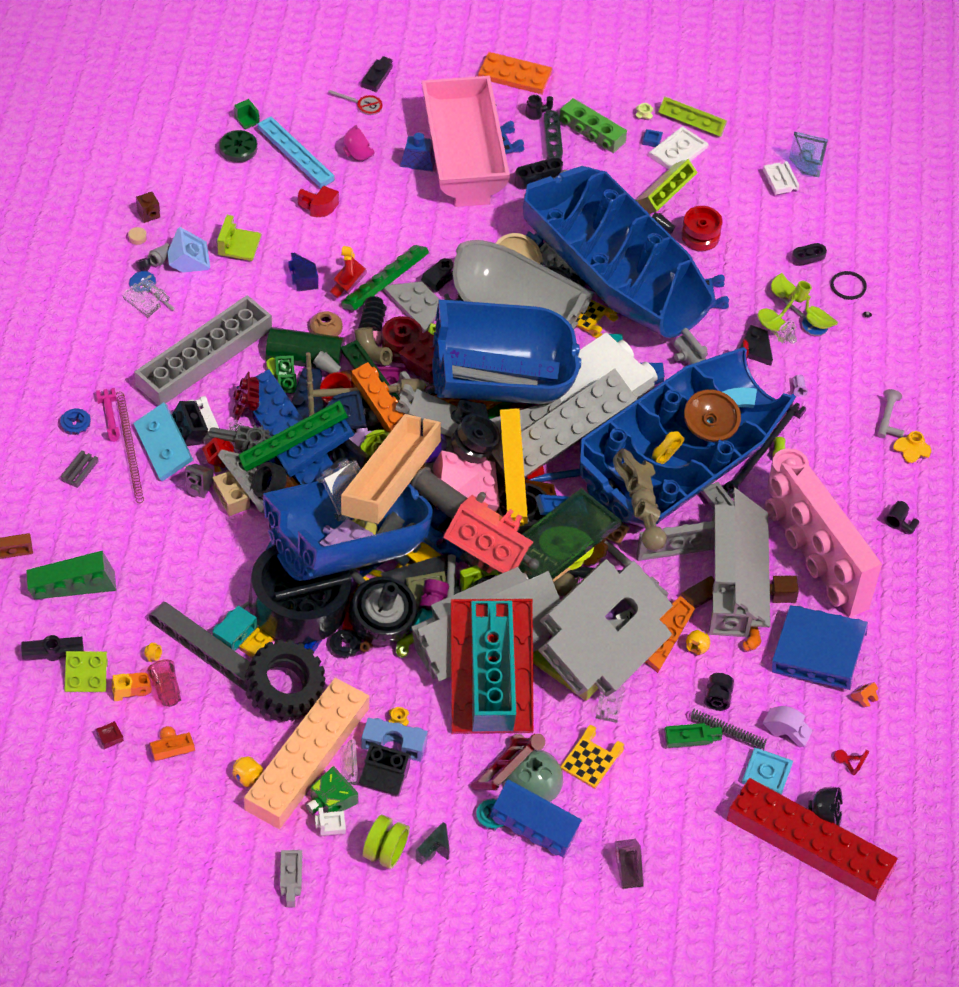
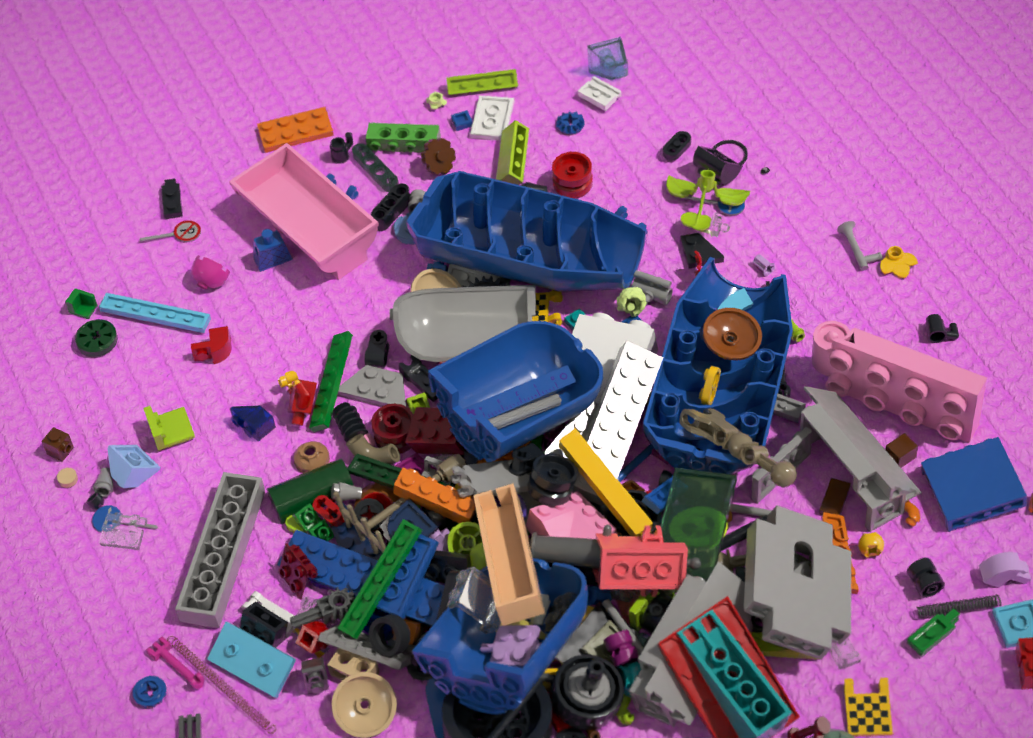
camera: 25 degrees left, 0 degrees up
(204, 517) = (348, 709): none -> tan dish
(301, 370) = (326, 513): none -> red beam
(326, 380) = (363, 507): none -> black gear
(606, 154) = (438, 156): none -> reddish brown plant
(664, 349) = (631, 301): none -> yellowish green piece
(741, 192) = (565, 127): none -> blue gear
(827, 285) = (712, 159): none -> black brick

